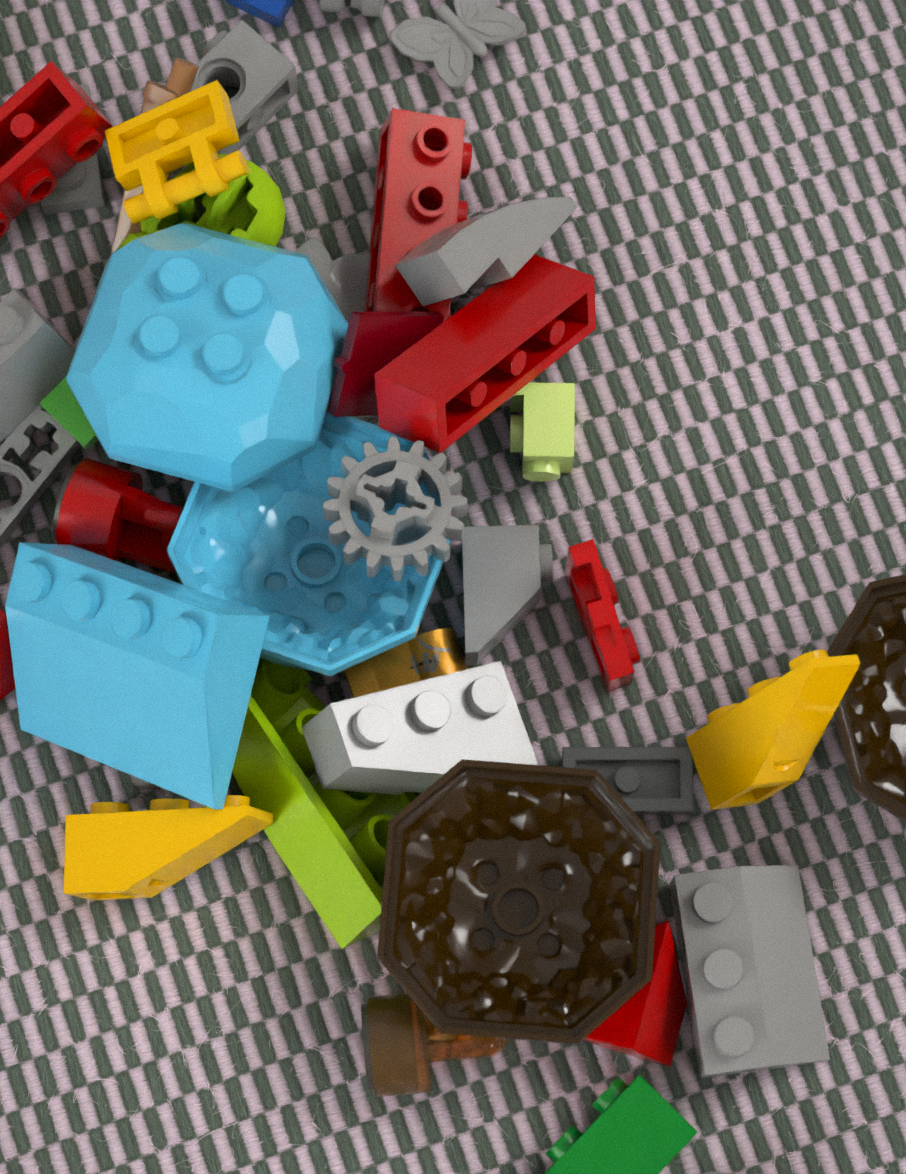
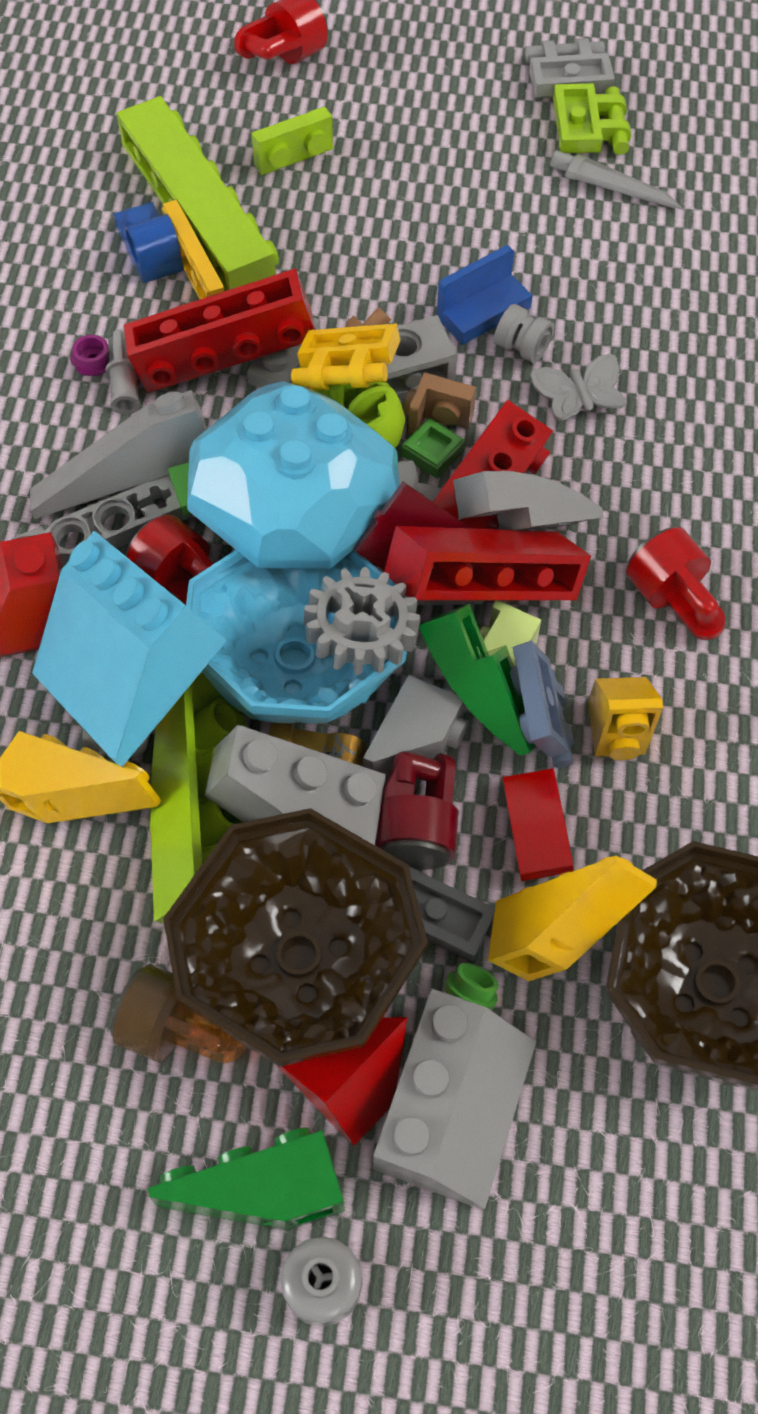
camera: 25 degrees right, 15 degrees down
(306, 131) = (440, 400): none -> medium nougat bracket
(322, 198) = (433, 447): none -> bright green tile
(544, 490) = (477, 675): none -> green slope
(564, 703) = (419, 827): none -> dark red piece
(595, 601) = (481, 771): red wing -> none
(614, 469) = (543, 702): none -> sand blue plate
(685, 626) = (538, 824): none -> red slope
(686, 243) = (669, 574): none -> red piece
(707, 844) = (472, 984): none -> bright green plate
(718, 452) = (623, 716): none -> yellow slope

